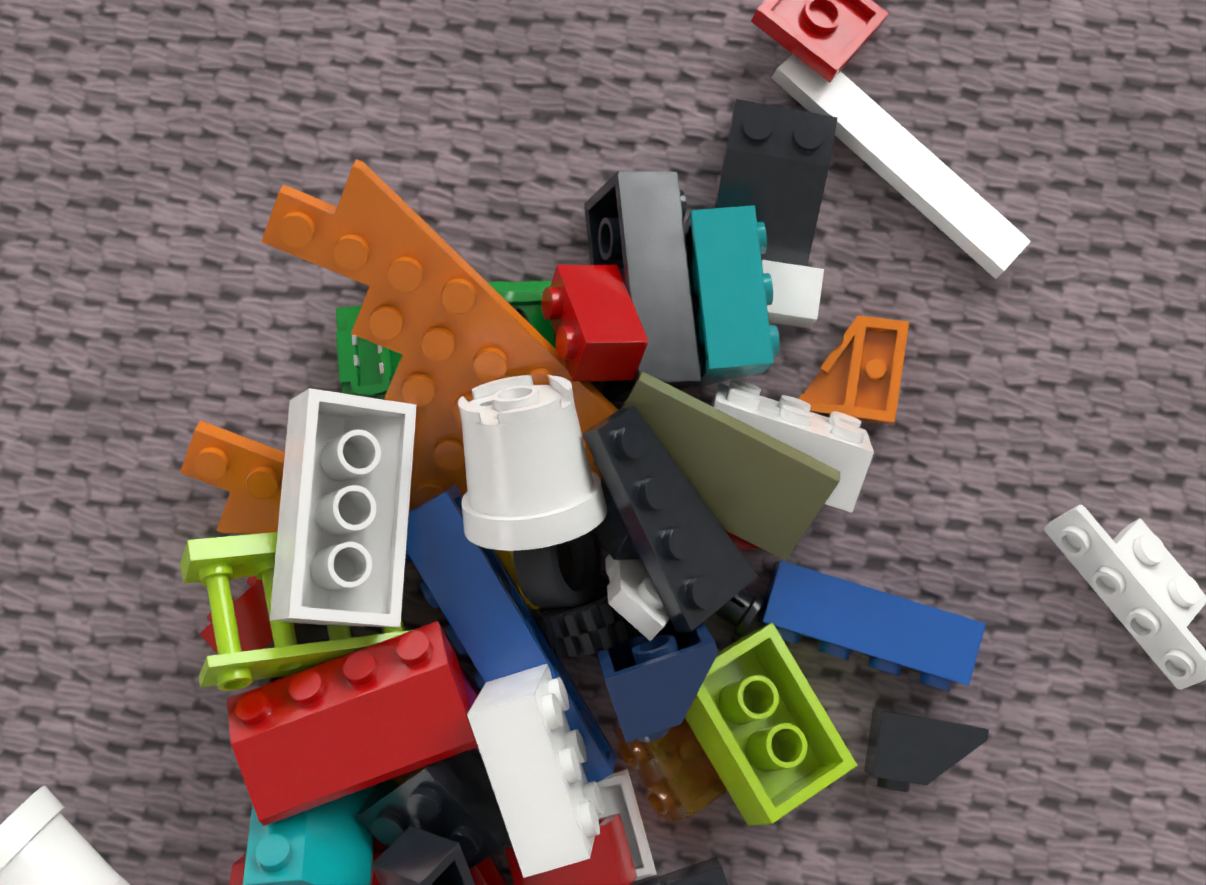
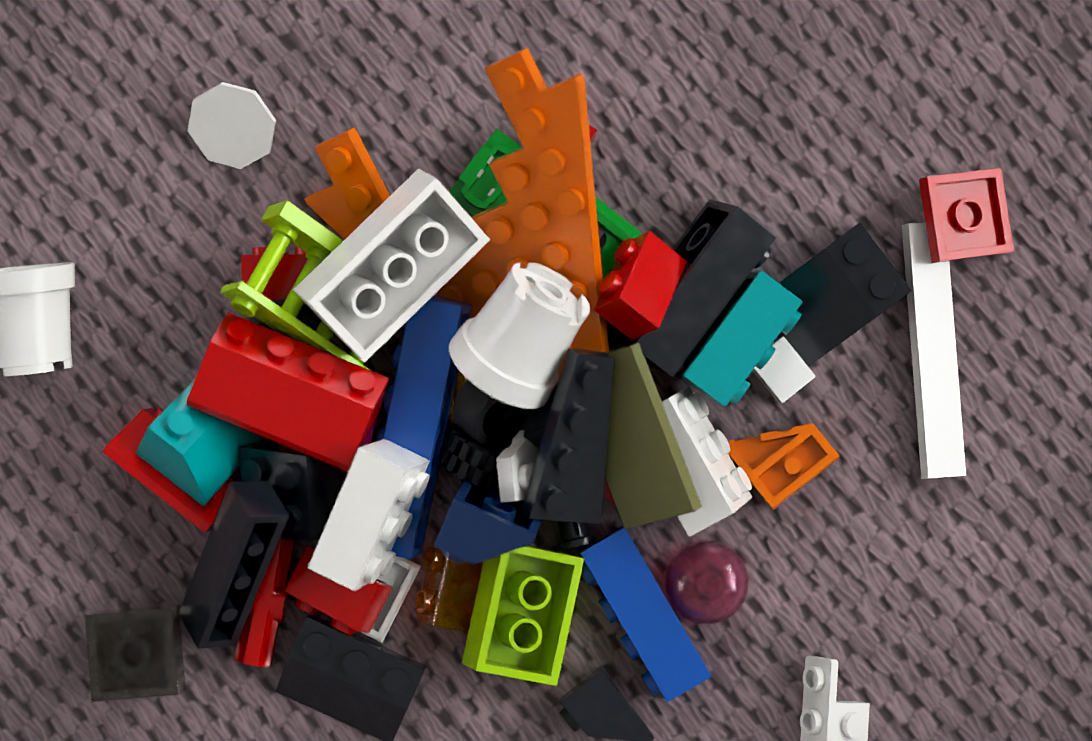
camera: 40 degrees right, 5 degrees up
(87, 523) = (231, 125): none -> white piece
(897, 543) = (706, 582): none -> clear pink cylinder

